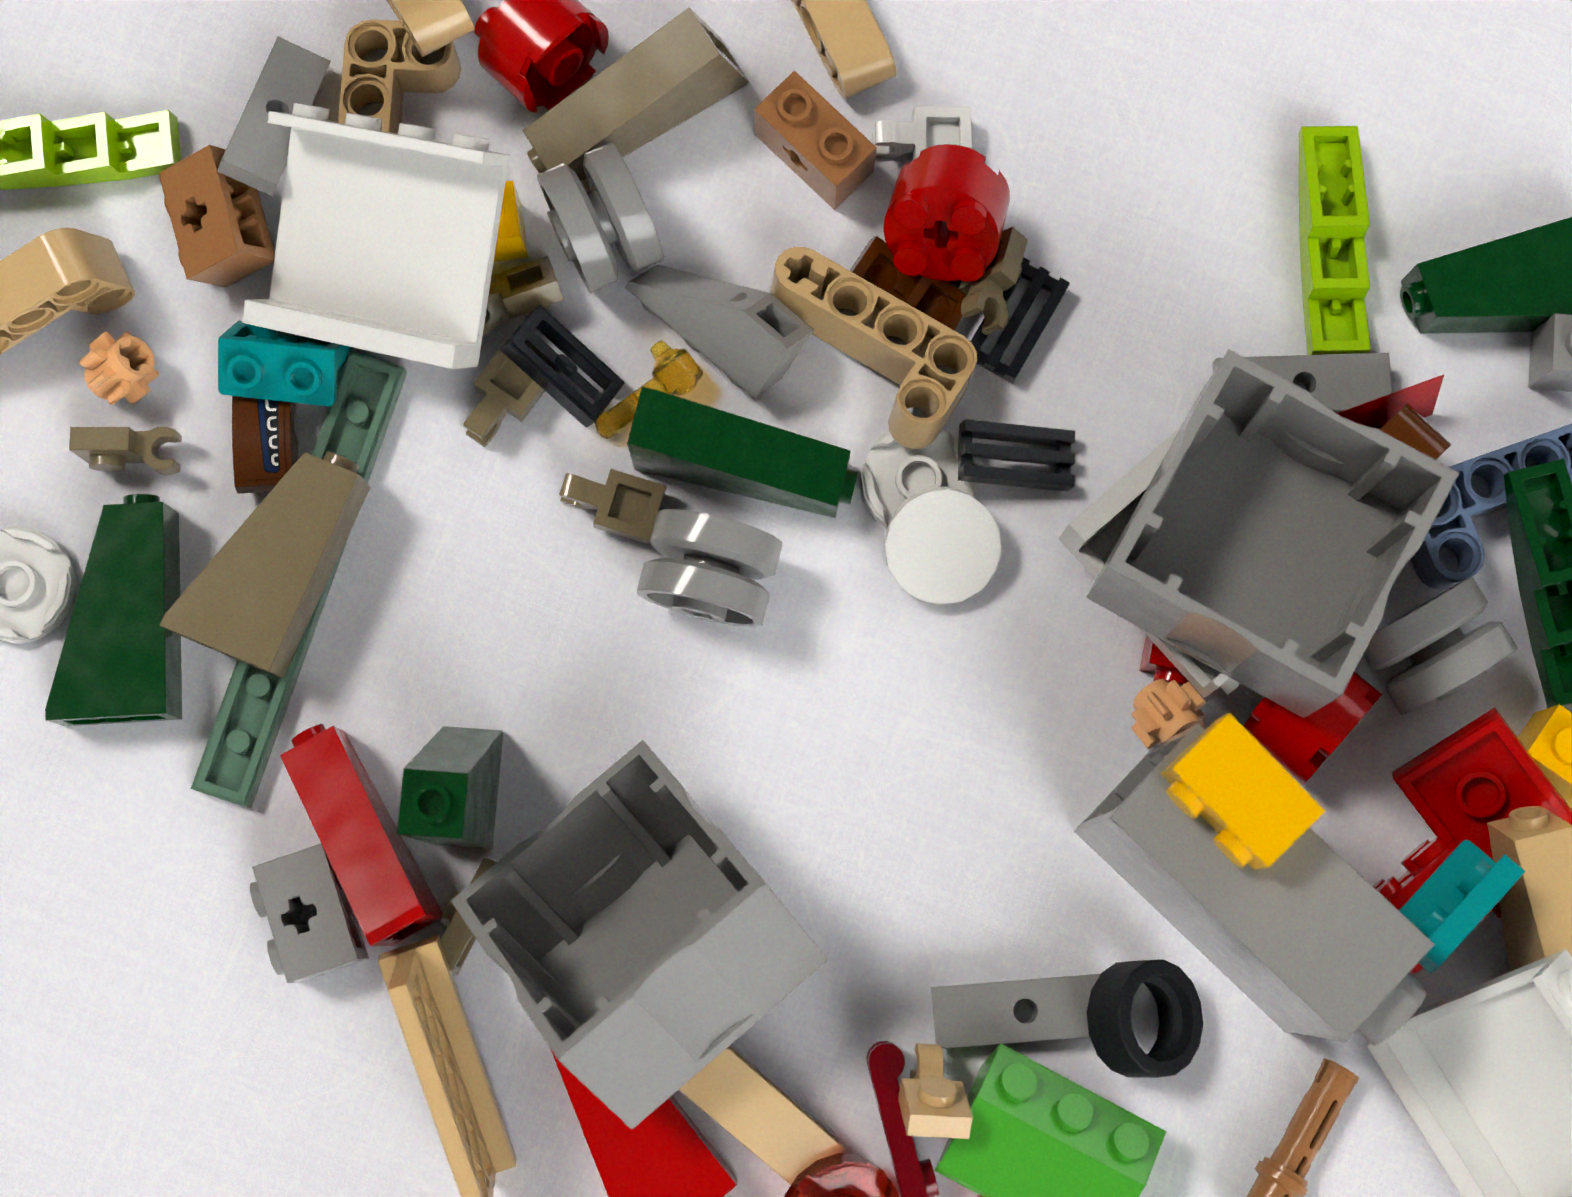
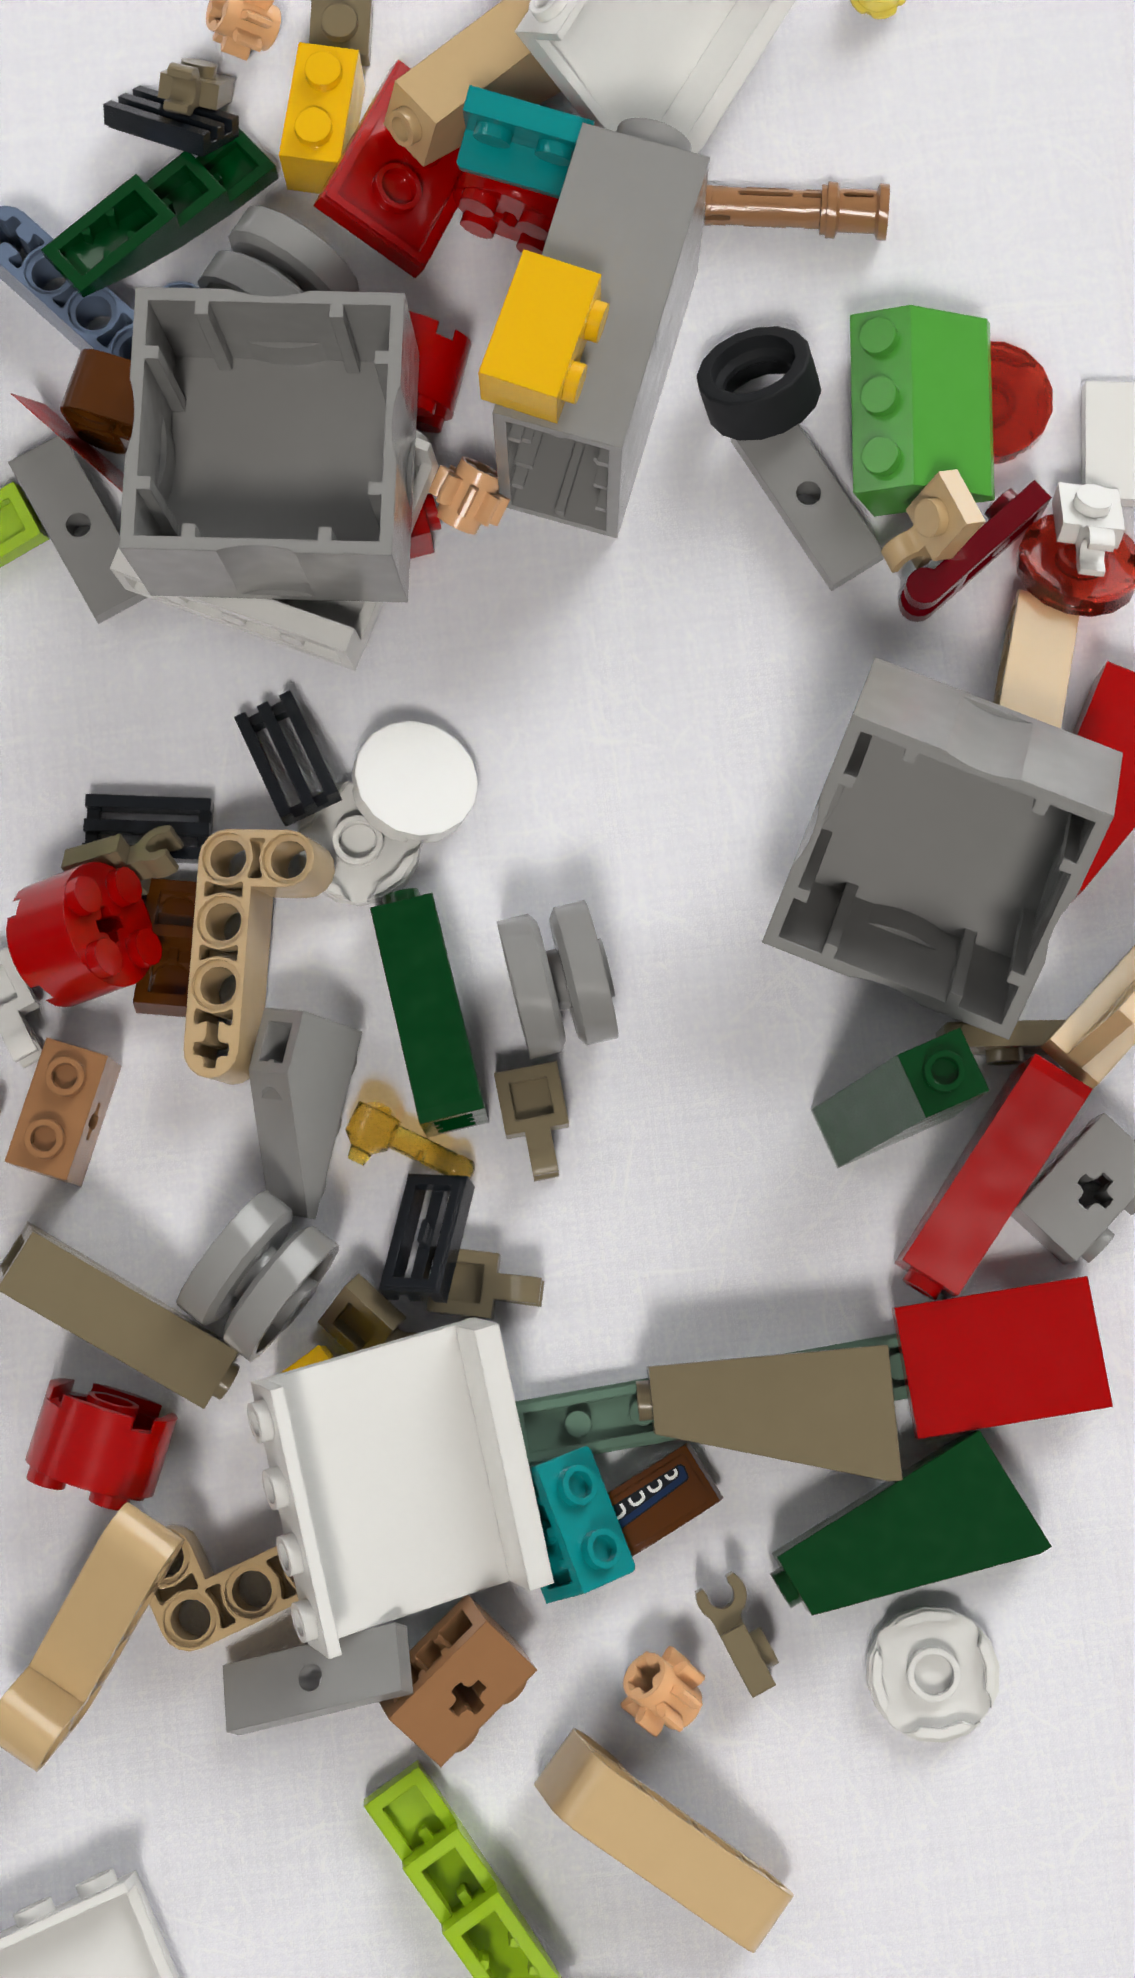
camera: 115 degrees left, 0 degrees up
(215, 768) = (1001, 1357): none -> red tile

